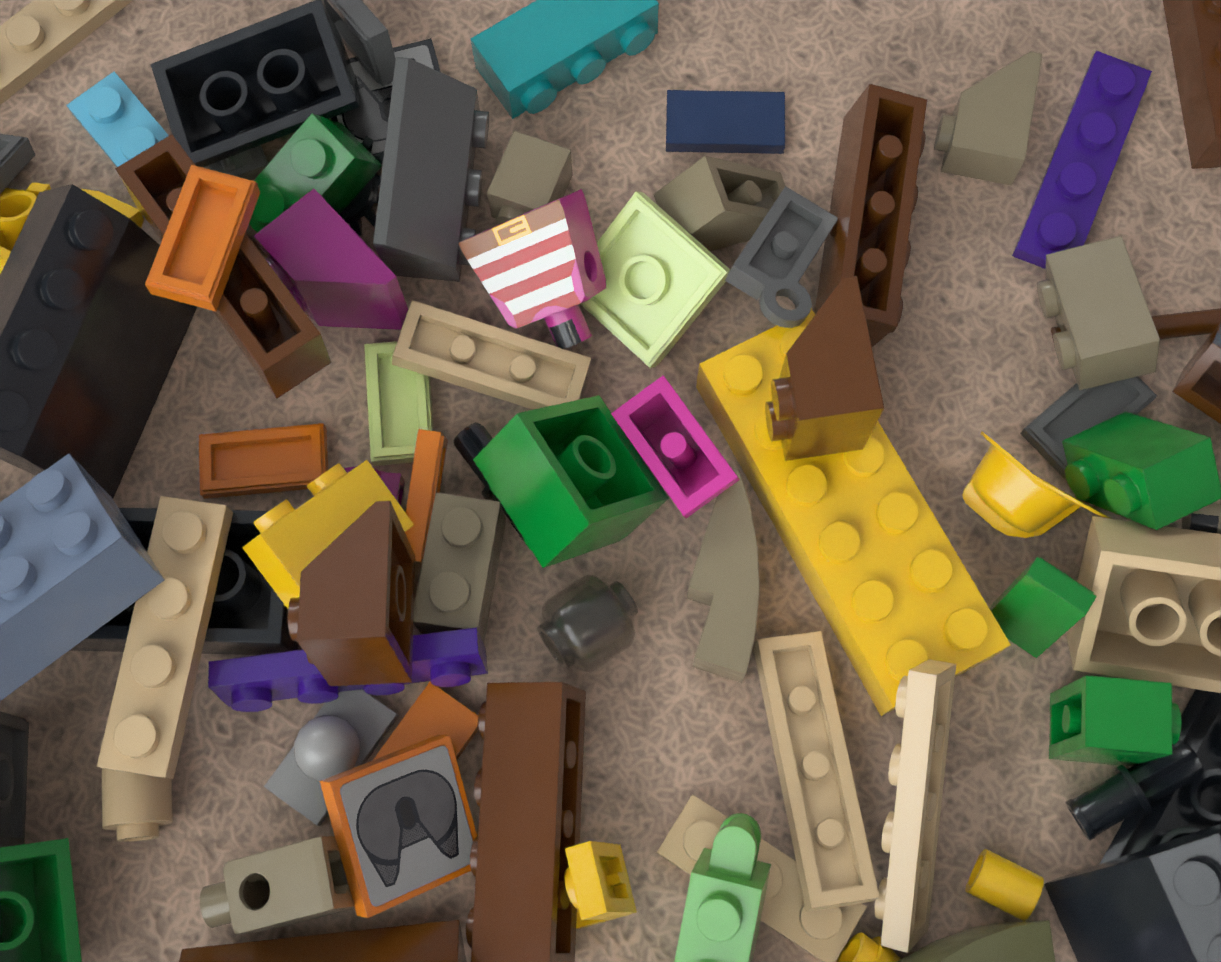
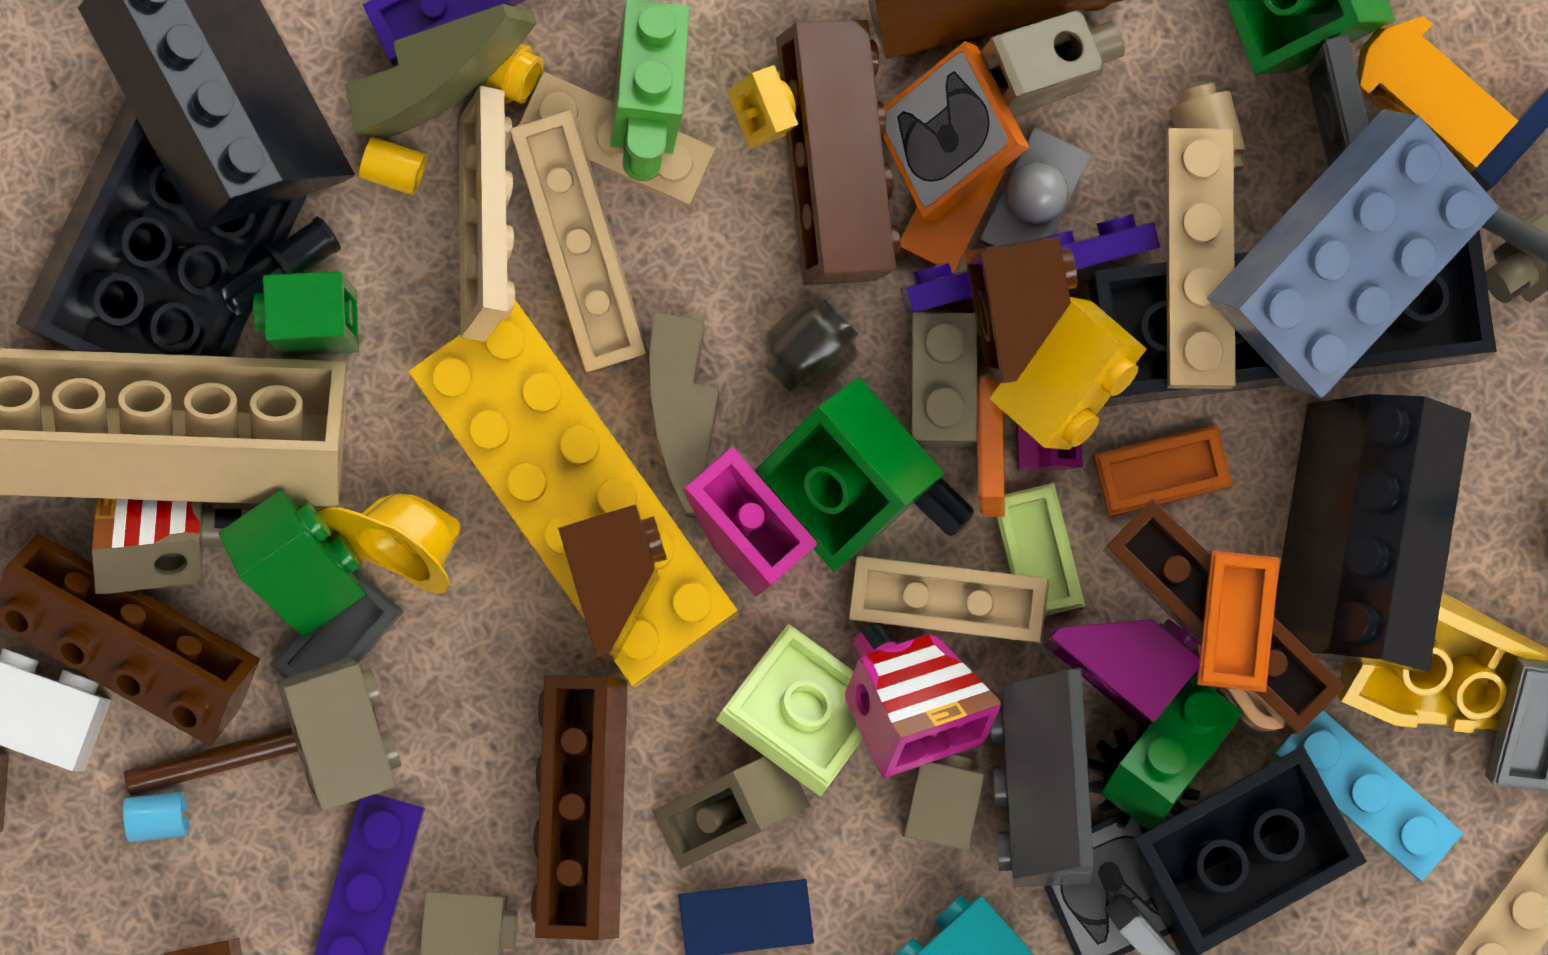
camera: 170 degrees right, 10 degrees up
(780, 256) = (667, 742): dark grey hinge -> none
(1041, 606) = (382, 413): green tile -> none

